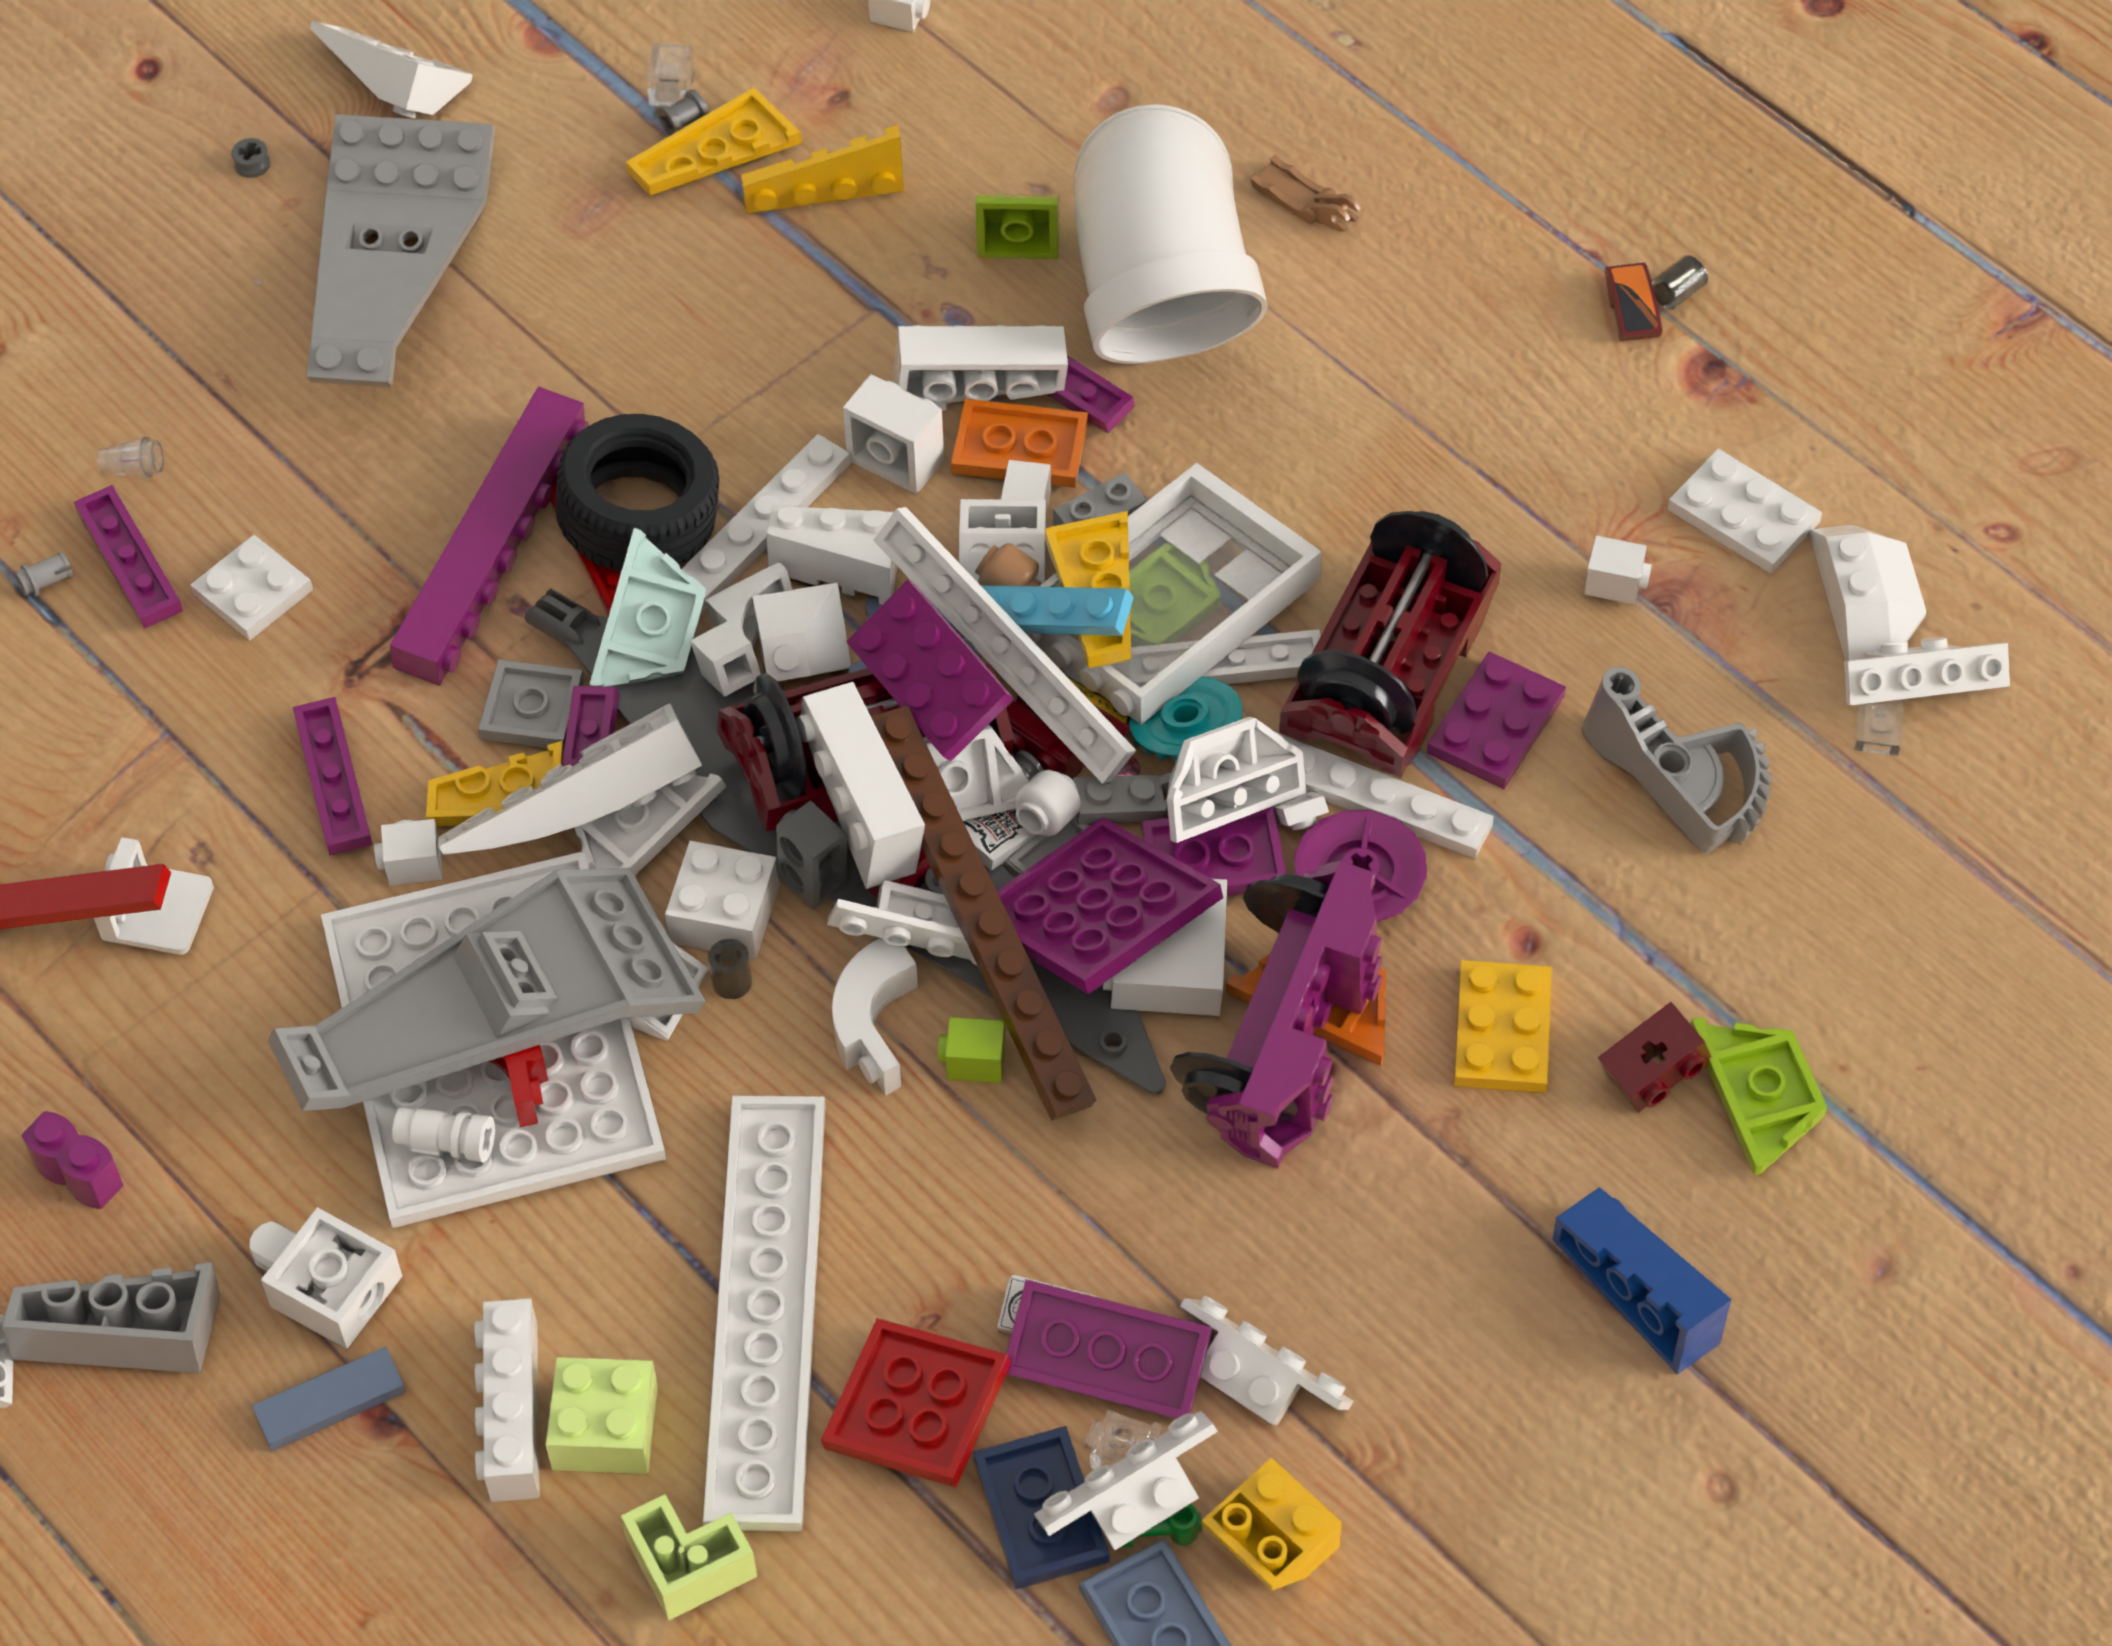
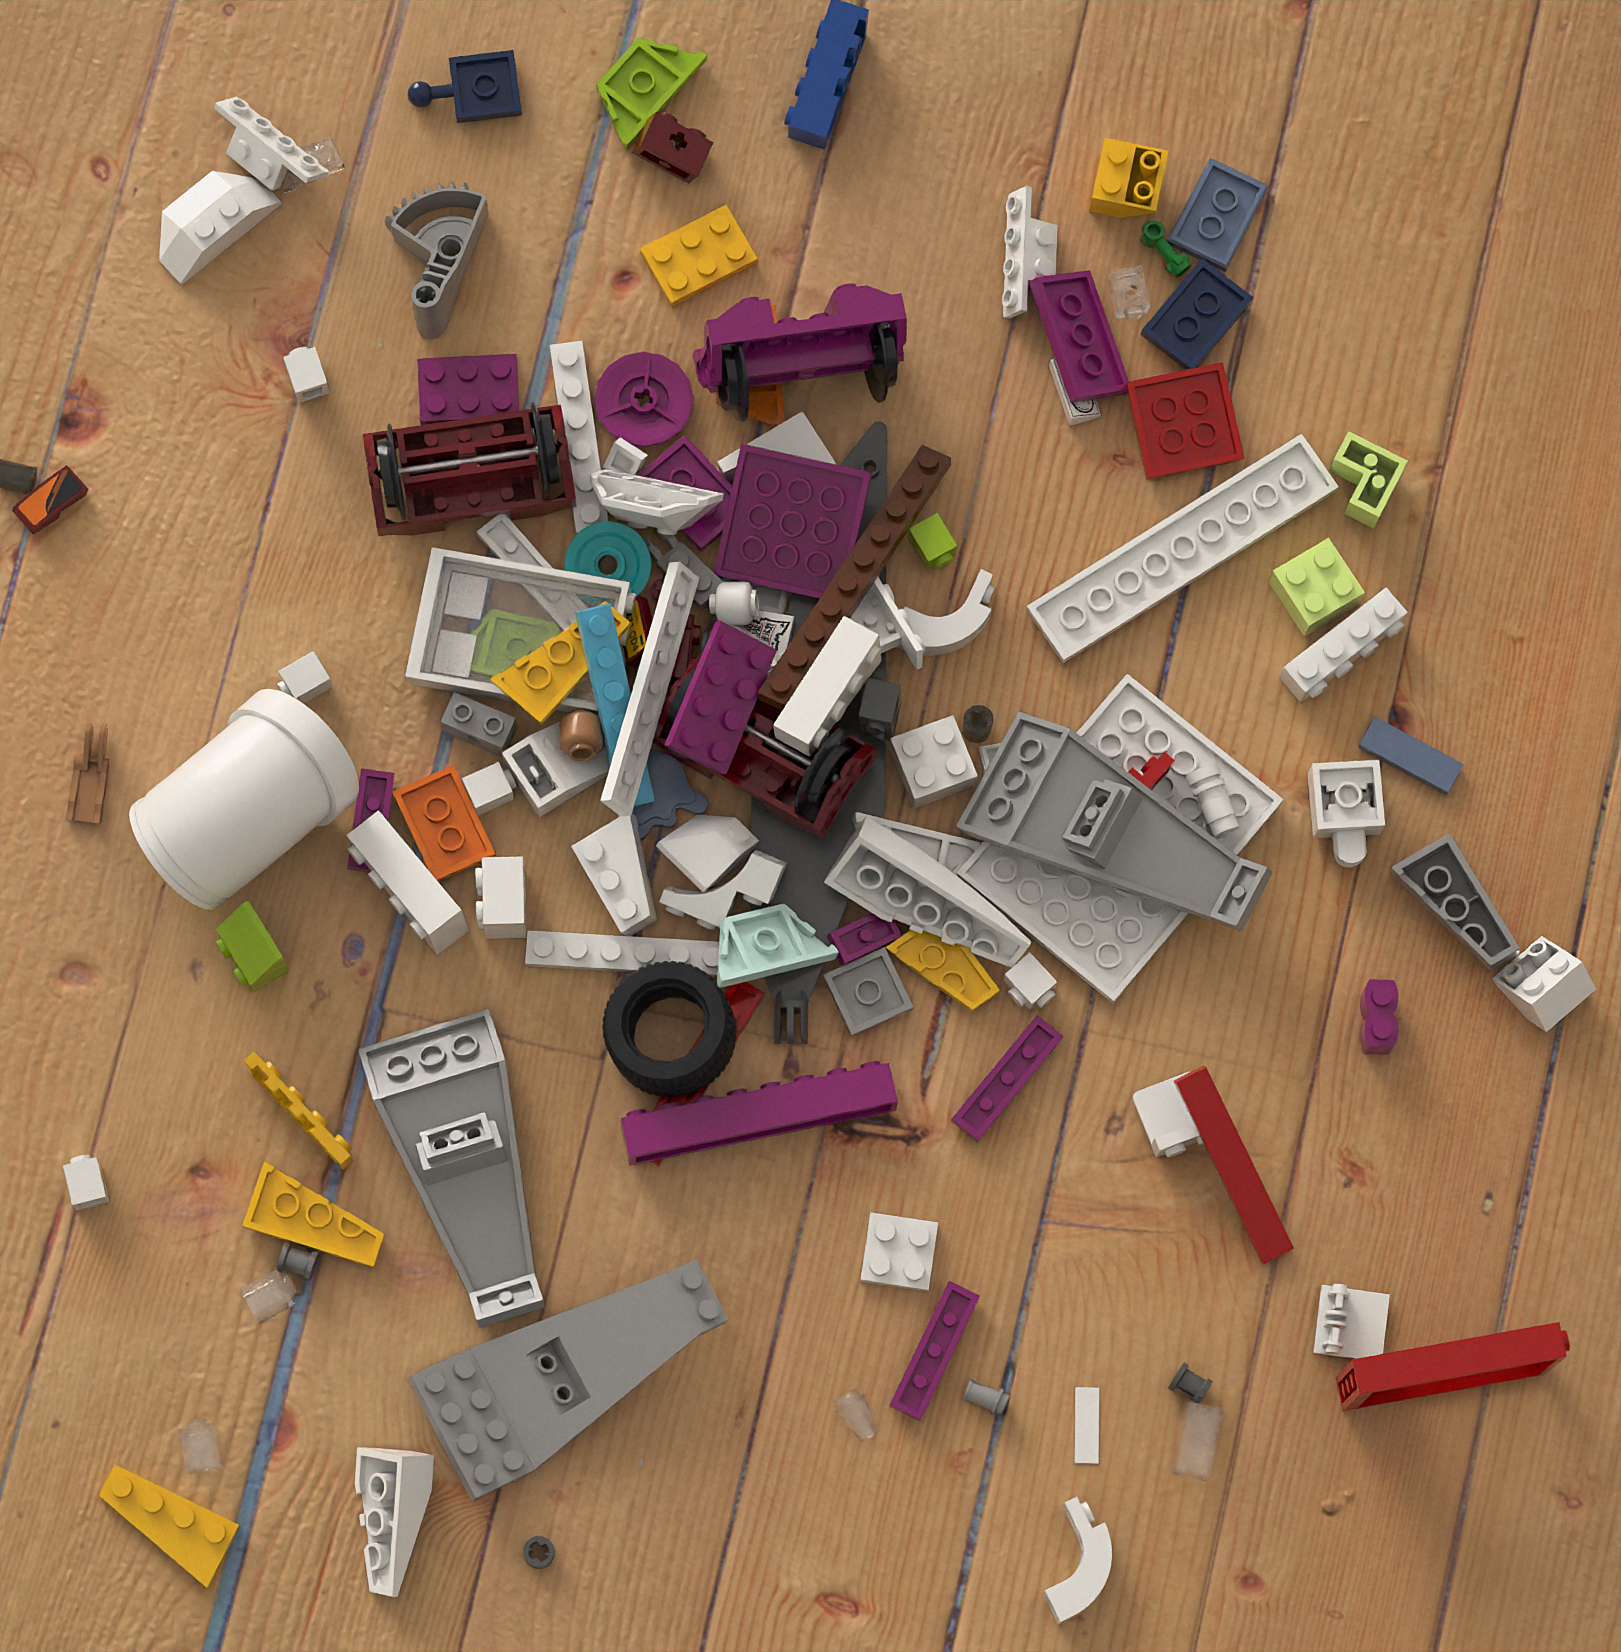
camera: 130 degrees left, 20 degrees up
(744, 289) = (442, 1092): none -> light grey wing
(1136, 1489) = (1162, 260): white bracket -> none
(1269, 405) = (304, 678): none -> white brick
(1744, 511) = (191, 332): white plate -> none
(1867, 920) = (481, 87): none -> dark blue plate

